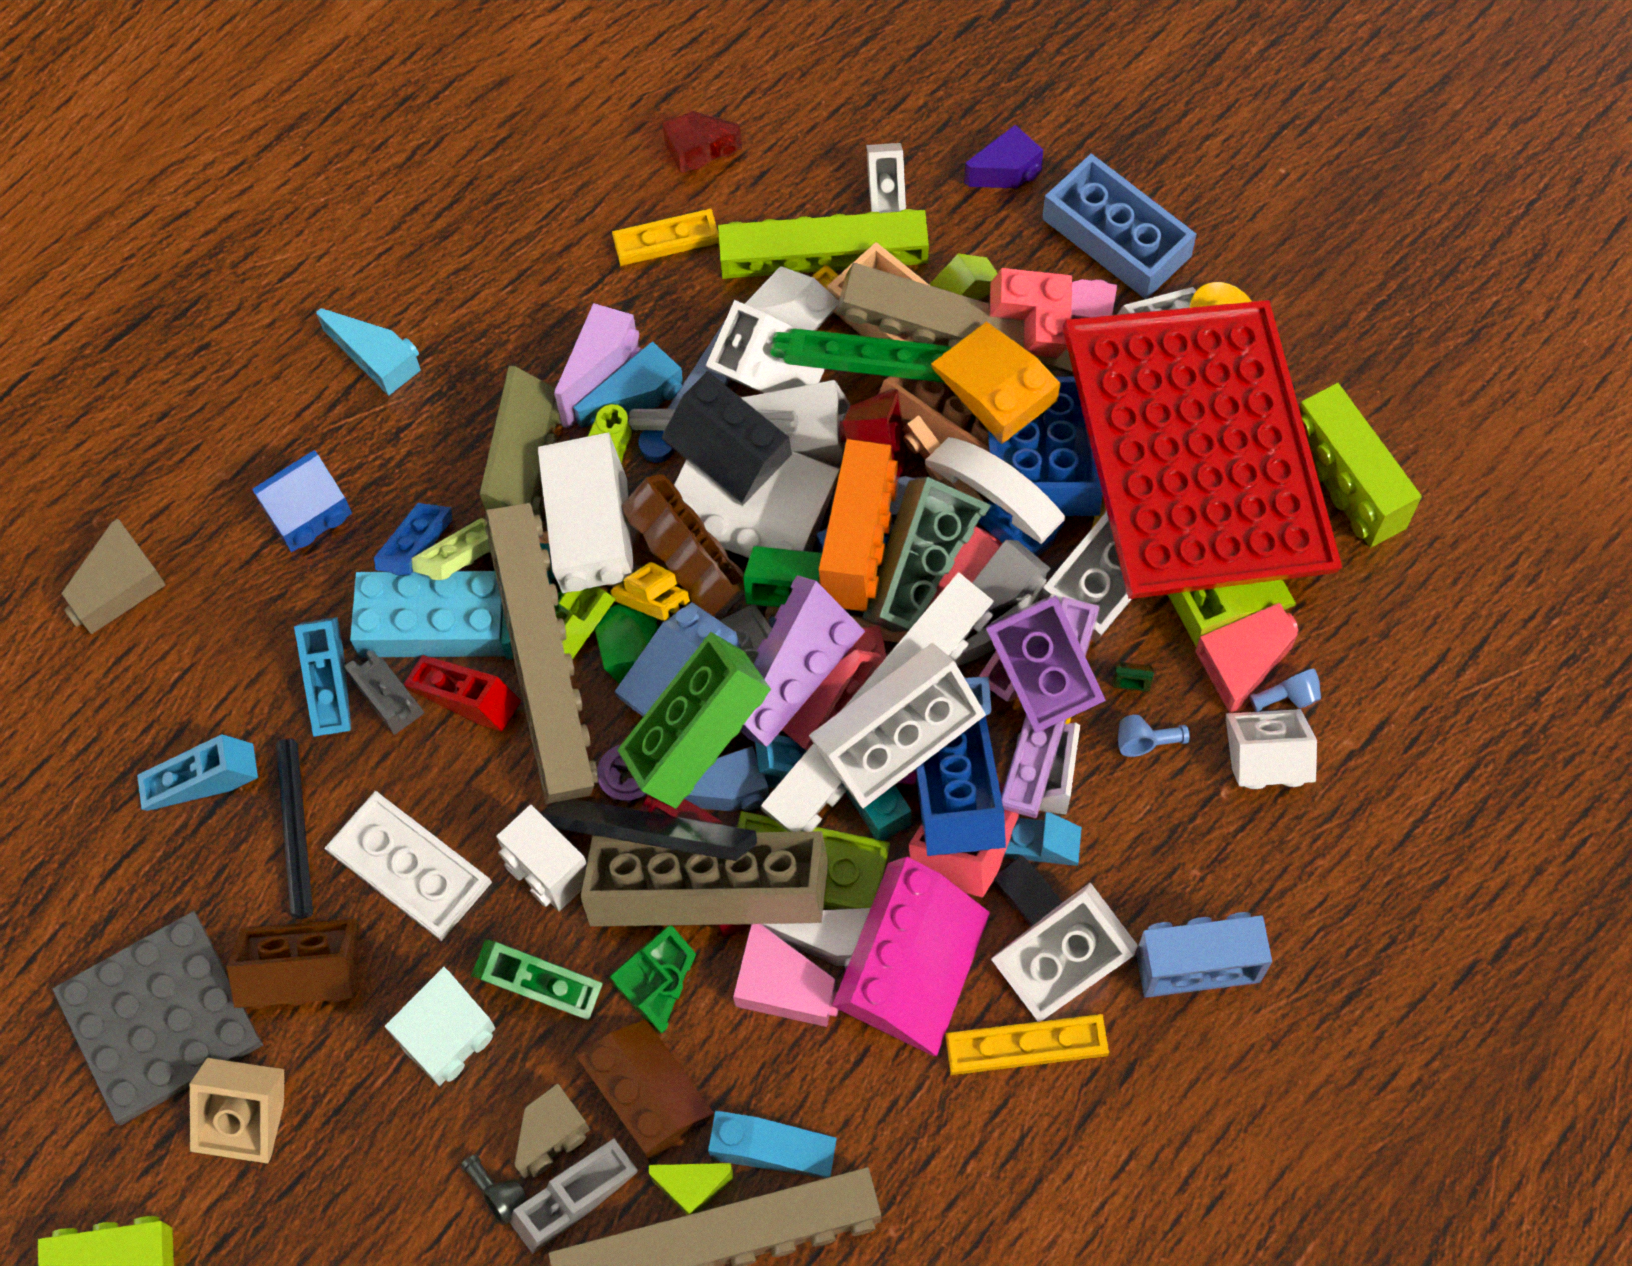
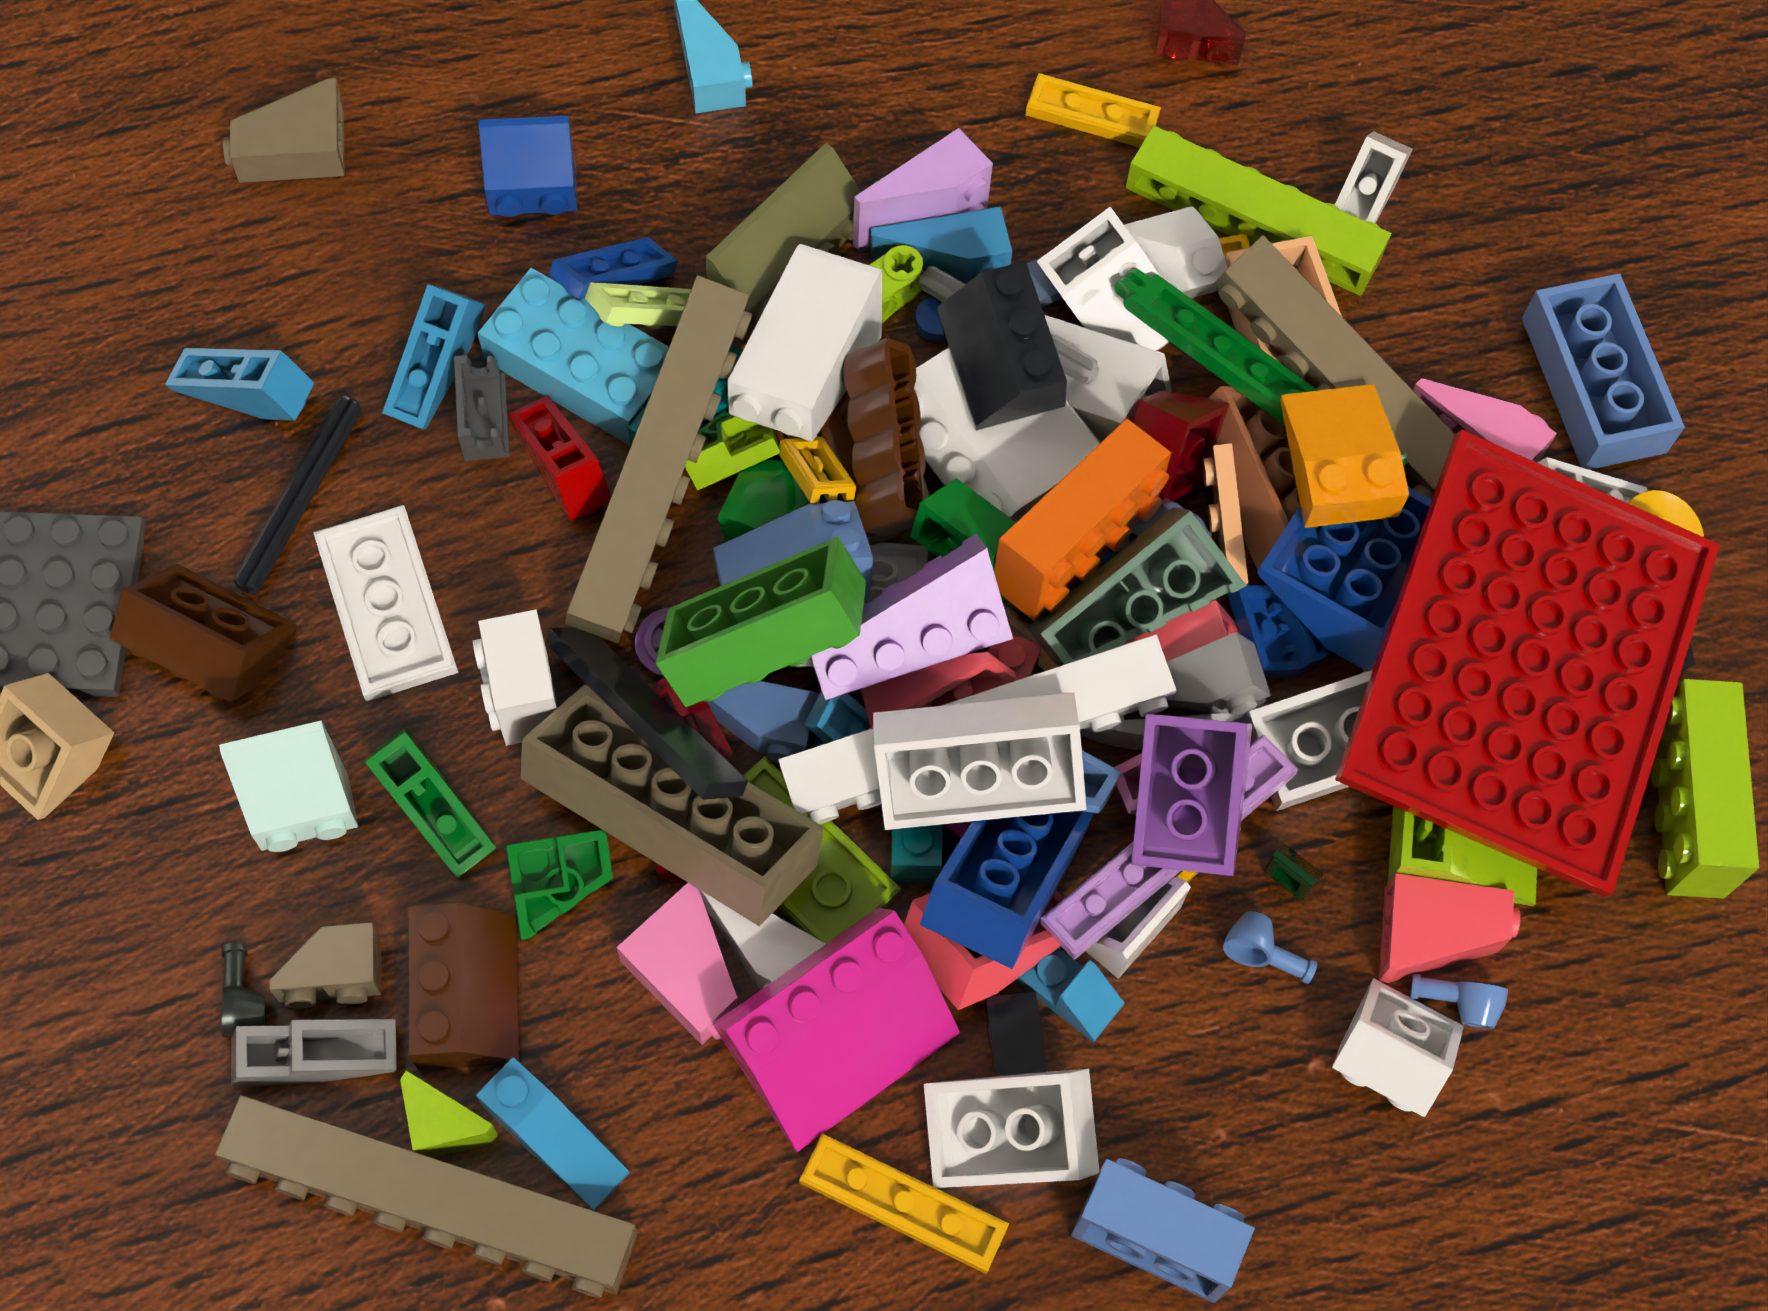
camera: 25 degrees right, 0 degrees up
(649, 581) = (824, 453): yellow tile -> none
(966, 276) = (1395, 334): lime slope -> none
(999, 483) = (1272, 569): white slope -> none
(1005, 162) = (1518, 233): dark purple slope -> none
(1040, 301) = (1449, 397): coral brick -> none

